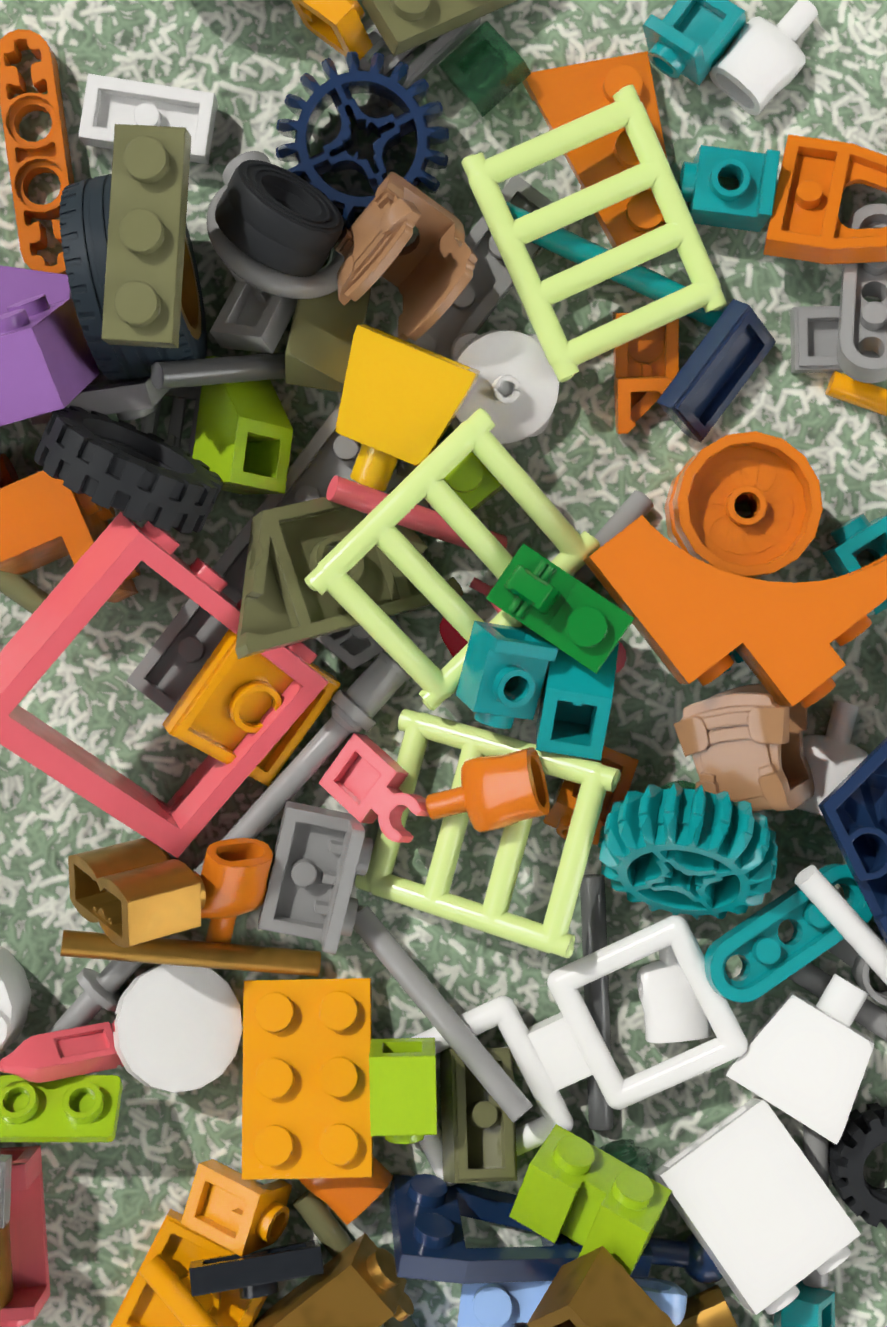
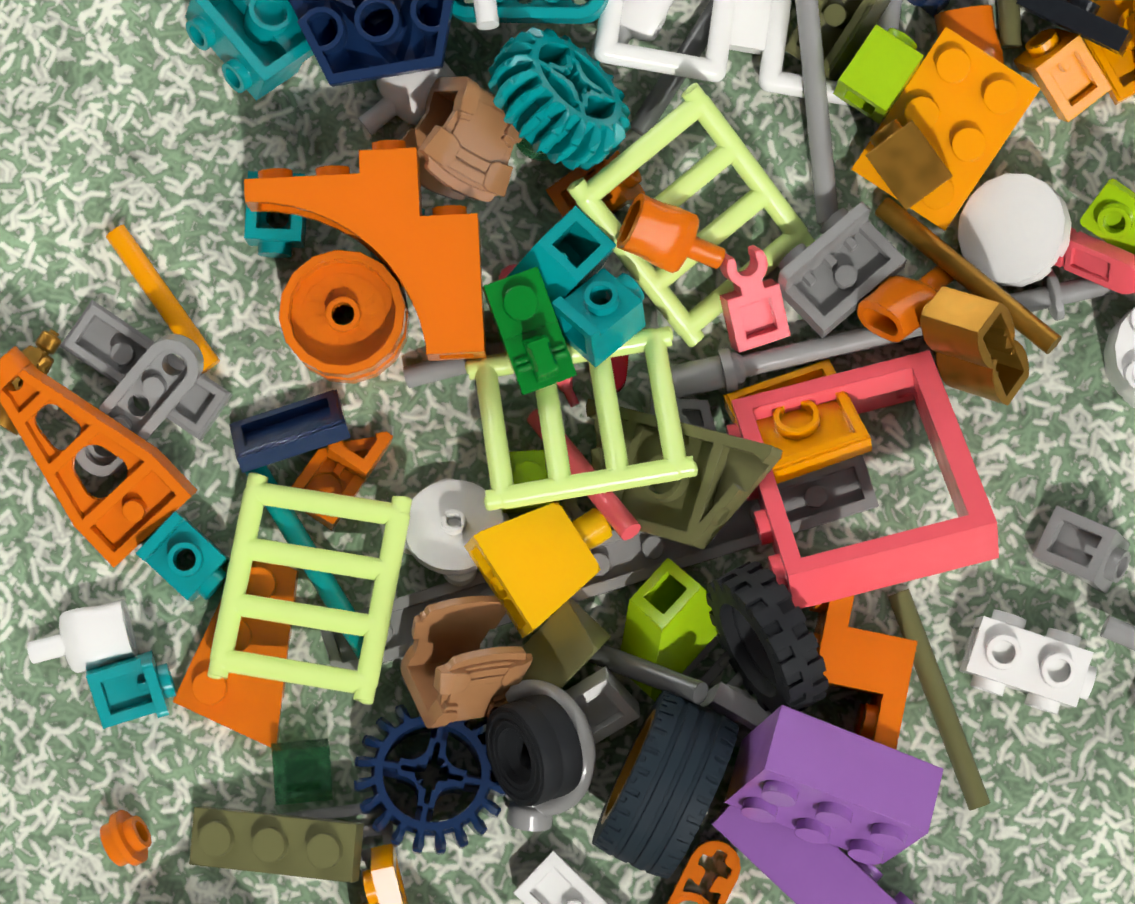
camera: 140 degrees left, 5 degrees down
(146, 236) = (640, 778): olive plate -> none
(316, 1021) = (907, 162): none -> pearl gold brick

